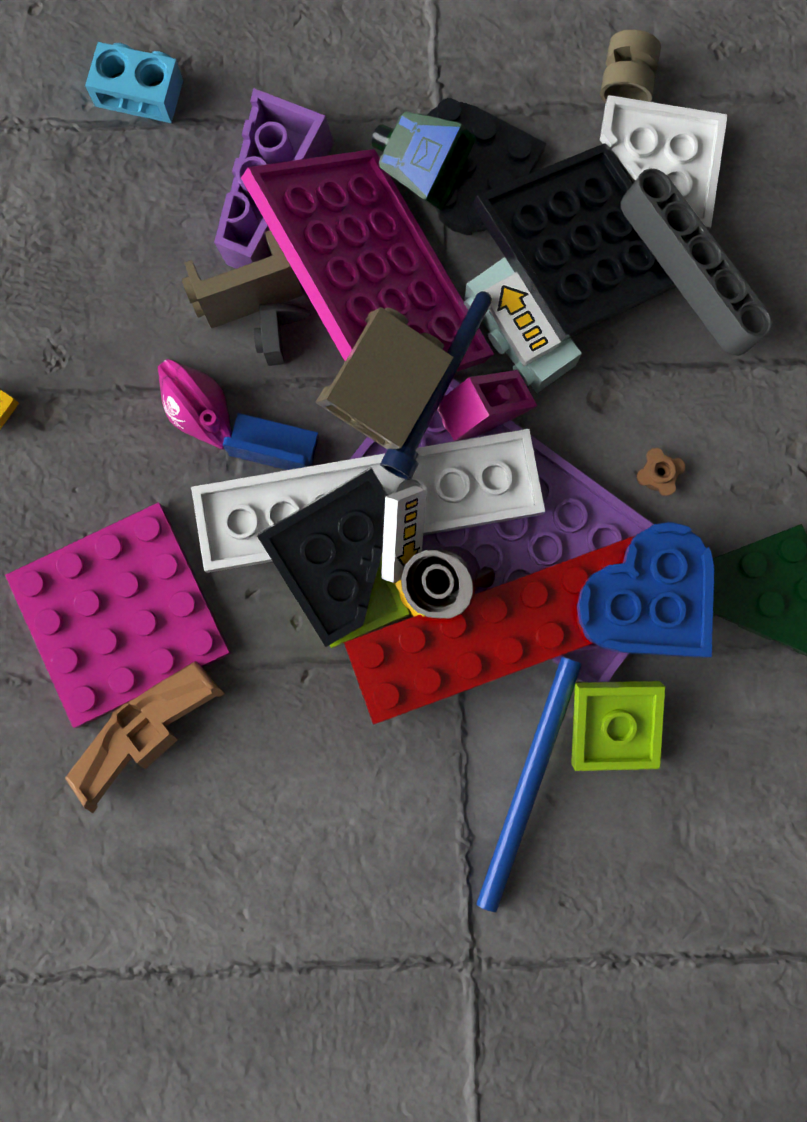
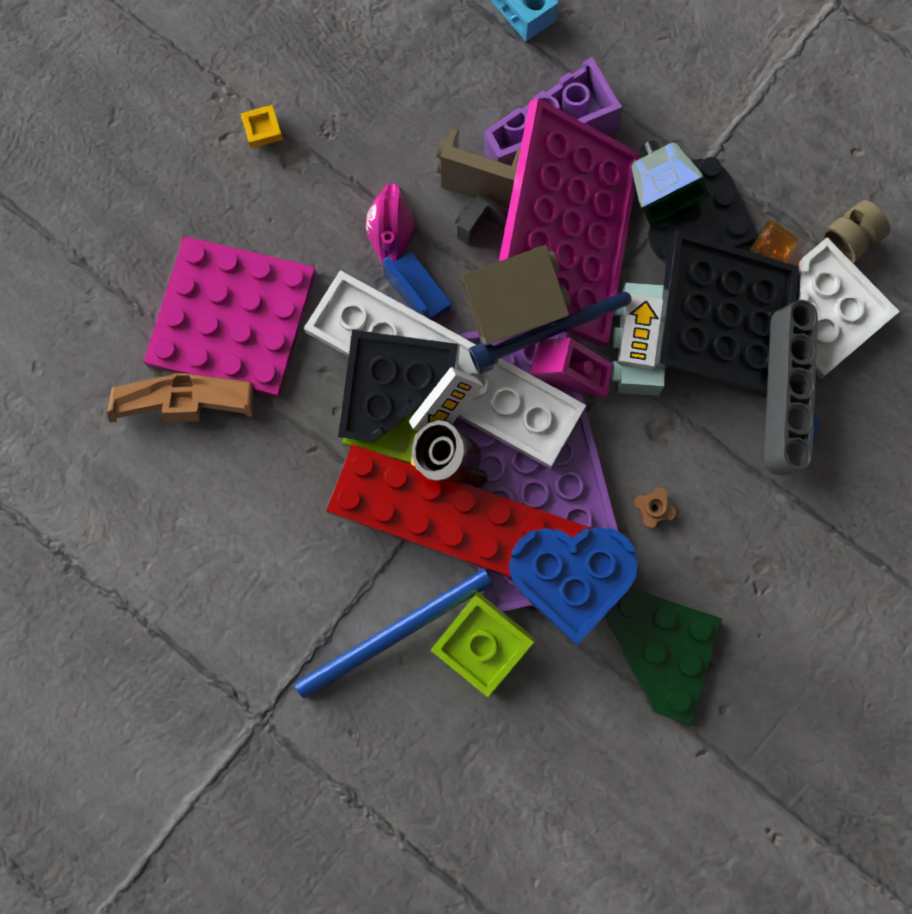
camera: 40 degrees right, 5 degrees down
(565, 137) = (775, 242): none -> clear orange plate

